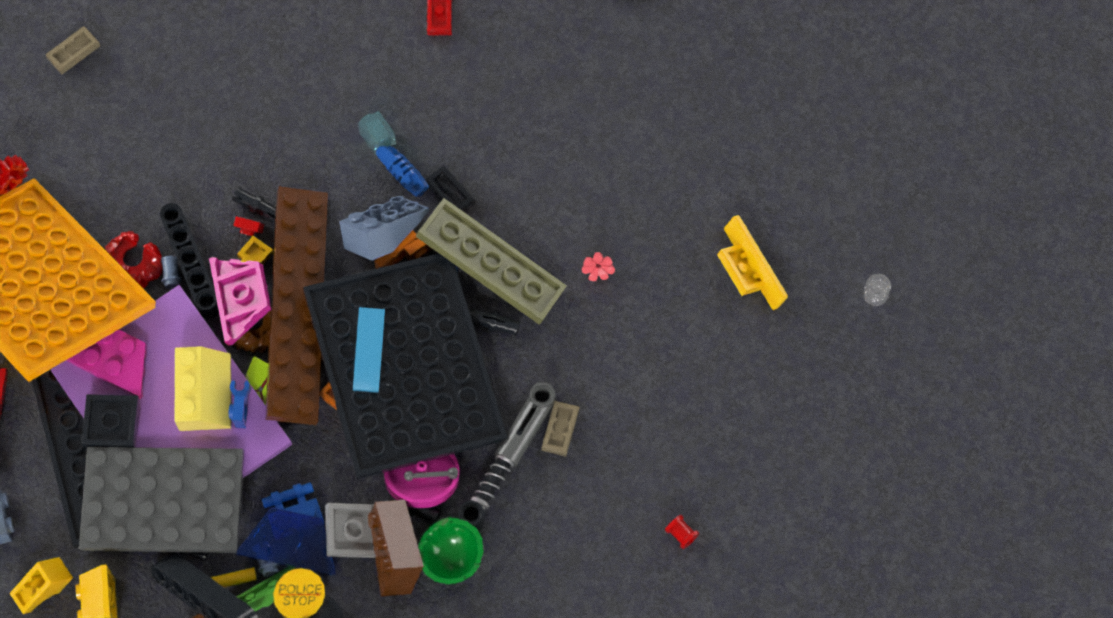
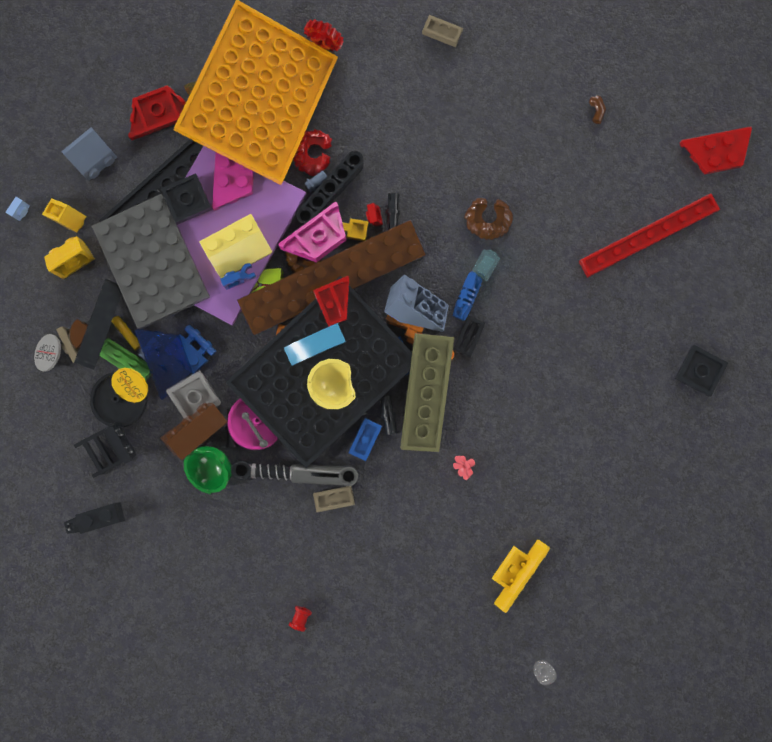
camera: 60 degrees right, 15 degrees up
(329, 305) = (334, 300): none -> red wing
(332, 117) = (488, 230): none -> reddish brown piece
(425, 352) = (331, 384): none -> light yellow cylinder
(509, 360) = (365, 439): none -> blue plate

